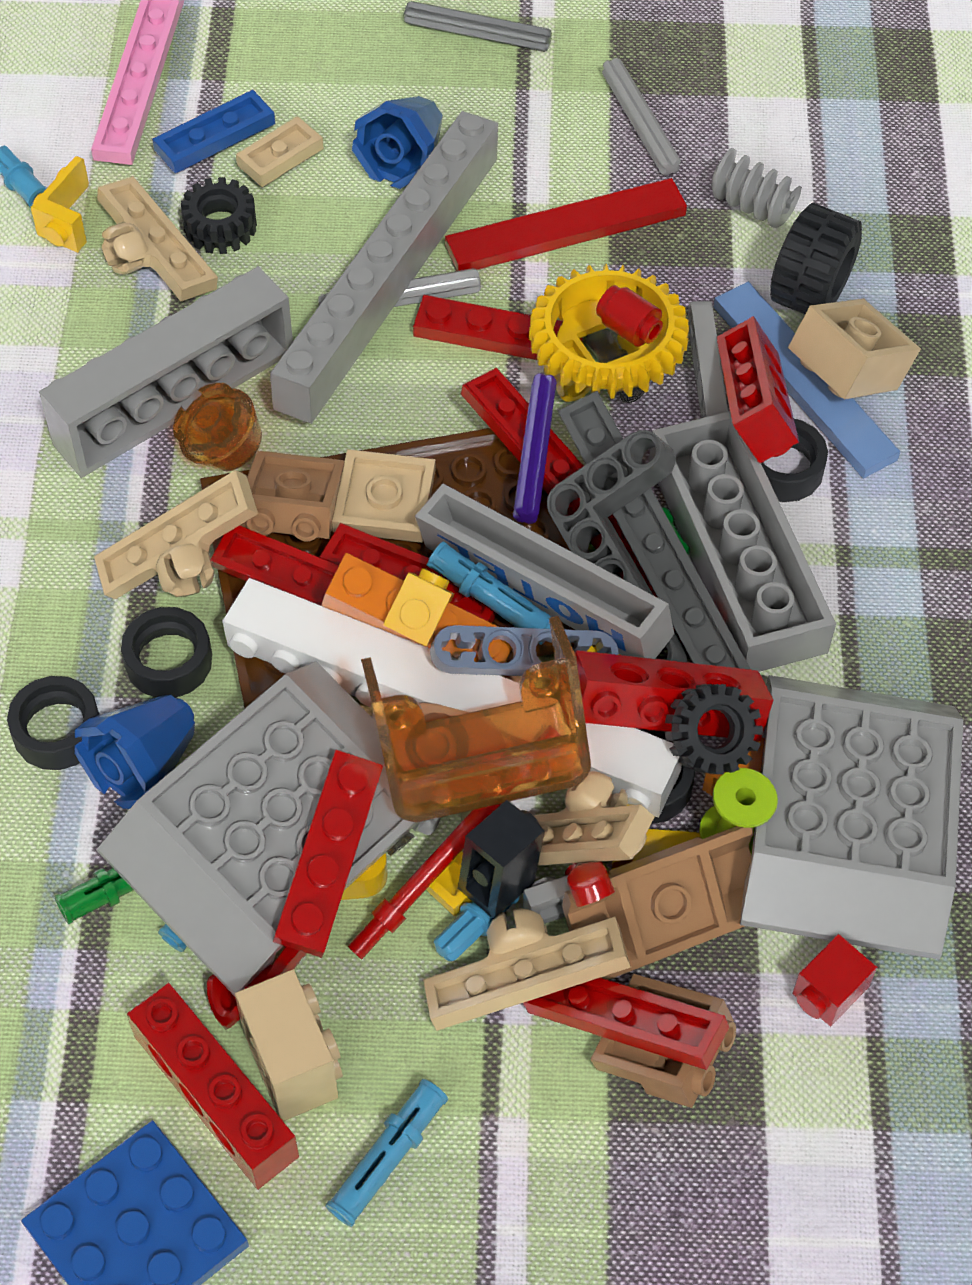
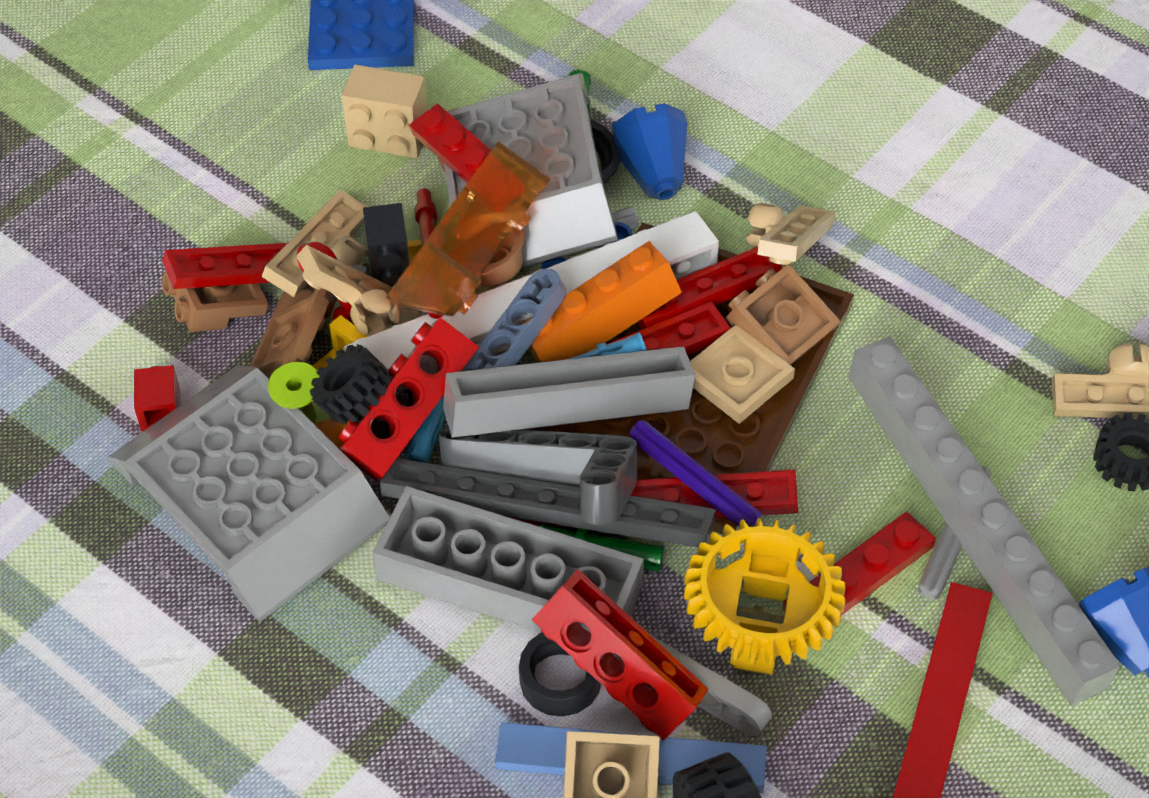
camera: 130 degrees right, 5 degrees down
(35, 697) = (717, 152): black tyre -> none
(148, 377) = (967, 317): light grey brick -> none
(156, 624) = (724, 190): black tyre -> none
(213, 1086) = (447, 76): red brick -> none
(219, 428) = (883, 314): clear orange cone -> none
(351, 1200) = (297, 164): dark azure pin -> none
(419, 606) = (603, 299): yellow bracket -> none
(629, 315) = (743, 573): red brick -> none

